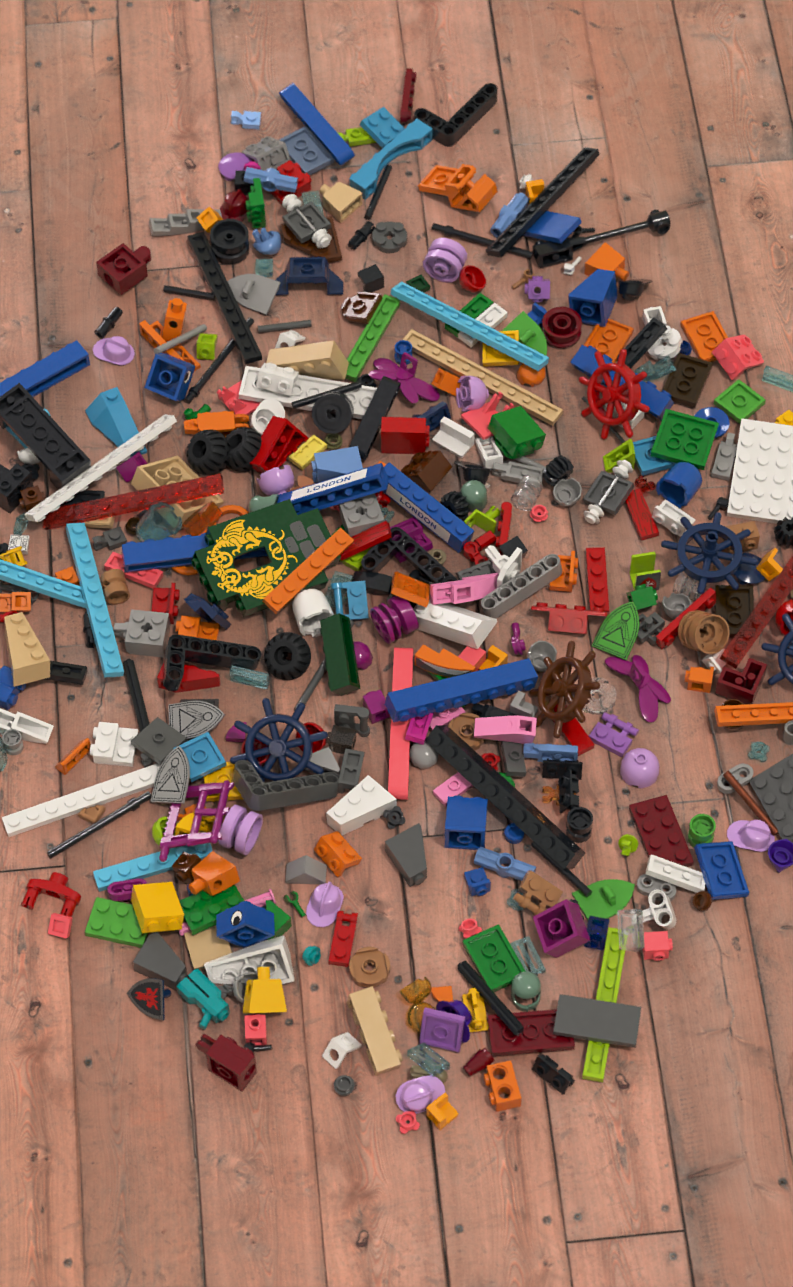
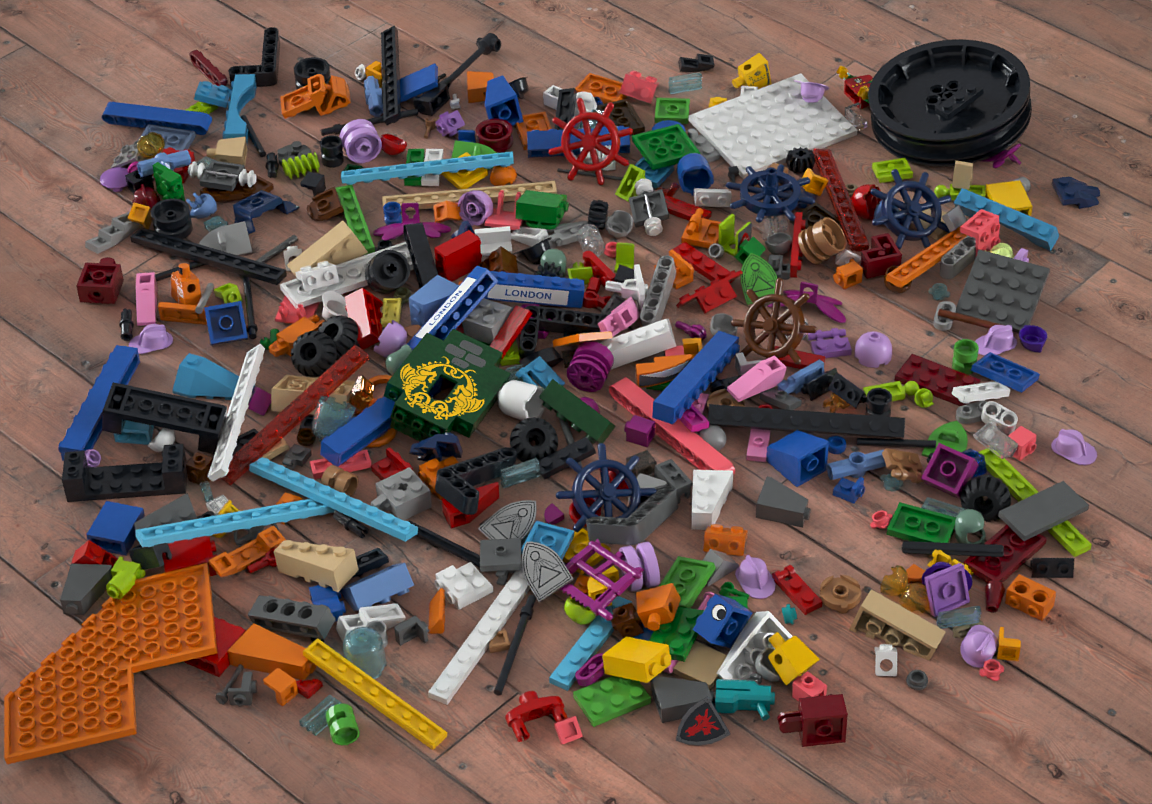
camera: 40 degrees left, 15 degrees down
(39, 754) = (411, 629): none -> dark grey bracket
(52, 700) = (378, 587): none -> medium blue slope
(143, 306) = (146, 298): none -> bright pink slope
(249, 120) = (94, 146): light blue plate -> none
(263, 868) = (688, 578): none -> bright green plate
(276, 154) = (150, 145): none -> clear yellow hair
(296, 688) = (556, 461): none -> black plate
(308, 570) = (491, 373): orange plate -> none
(312, 399) = (355, 279): black bar -> none
(345, 717) = (630, 442): dark grey plate -> none
(380, 254) = (300, 166): none -> lime piece
(396, 811) = (739, 489): black plate -> none
(415, 253) = (331, 151): none -> black wheel
(481, 156) = (309, 67): none -> black wheel
(538, 529) = (624, 255): none -> lime bracket
(569, 973) = (988, 486): none -> black wheel
(609, 817) = (896, 389): none -> lime plate
(618, 572) = (716, 248): none -> light grey hinge
(625, 544) = (701, 231): none -> orange plate
(698, 984) = (1073, 447): none -> lavender piece
(702, 901) = (1016, 397): reddish brown plate -> none

